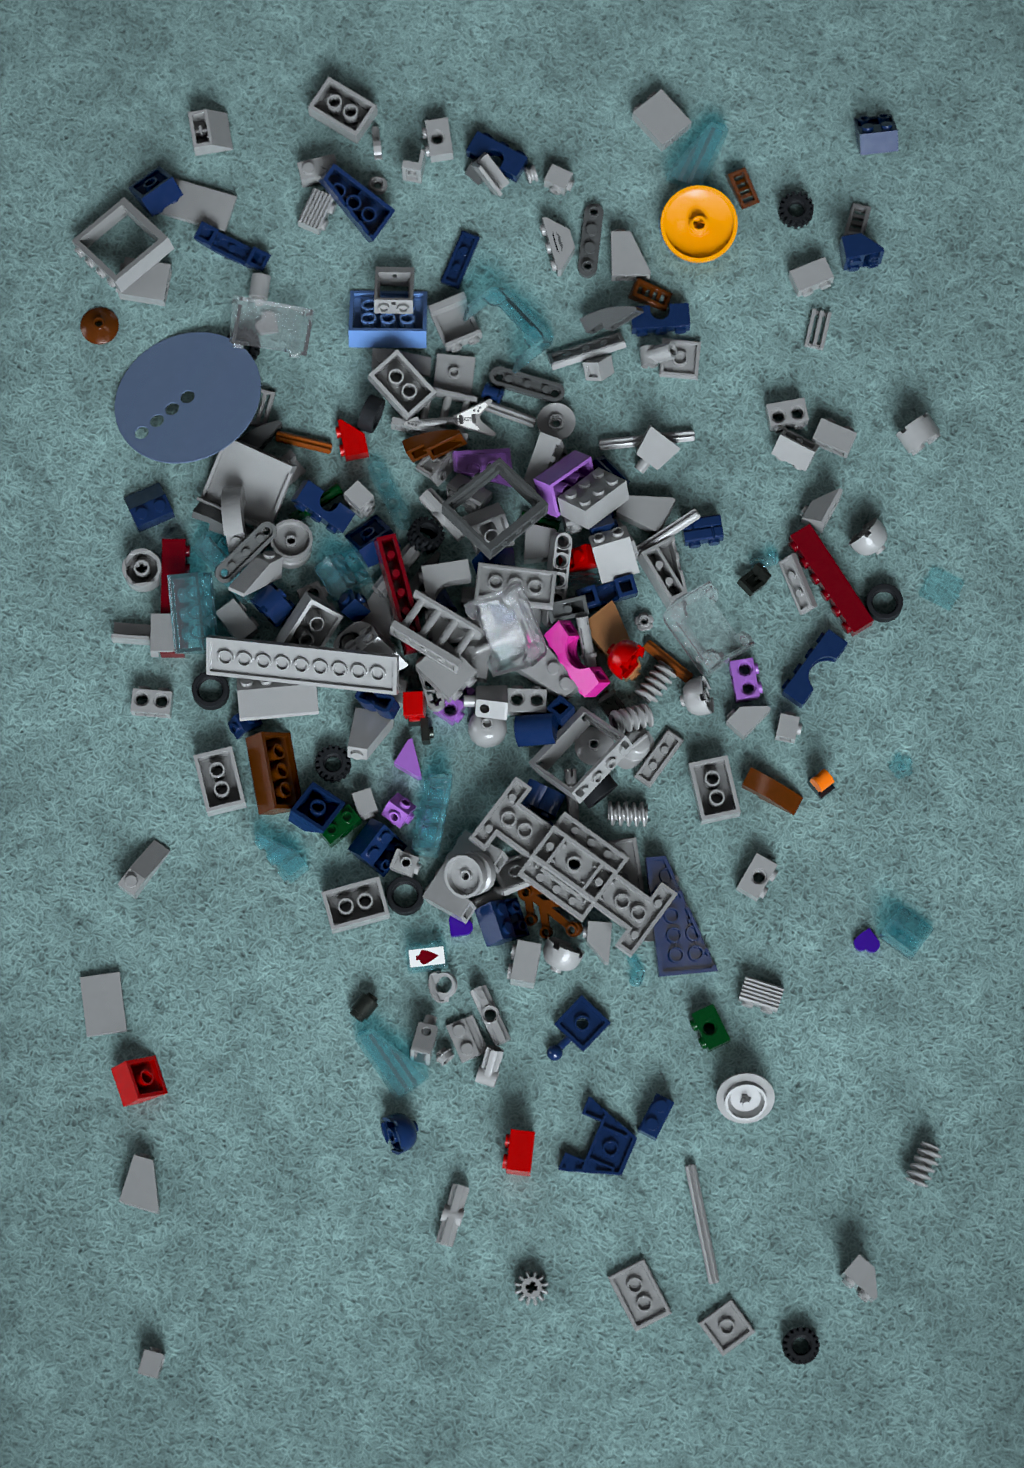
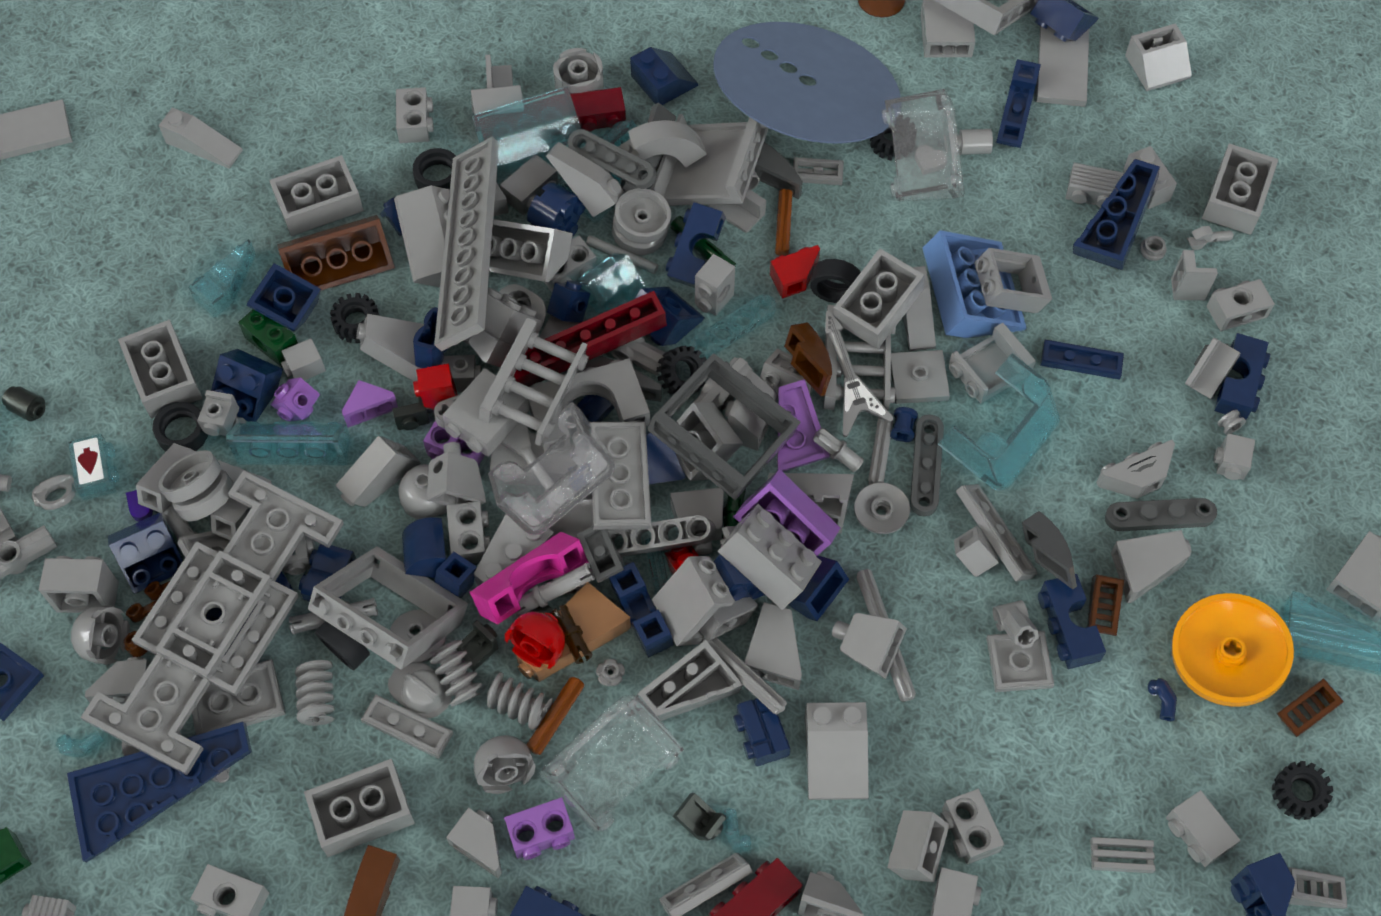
camera: 80 degrees right, 15 degrees down
(310, 564) = (611, 249): none -> light grey bar
(469, 758) = (376, 471): none -> light grey slope
(508, 440) = (838, 449): none -> light grey axle
(626, 635) = (573, 635): none -> dark brown pin
(720, 273) = (1168, 698): none -> dark blue arm
(723, 487) = (837, 750): none -> light grey slope

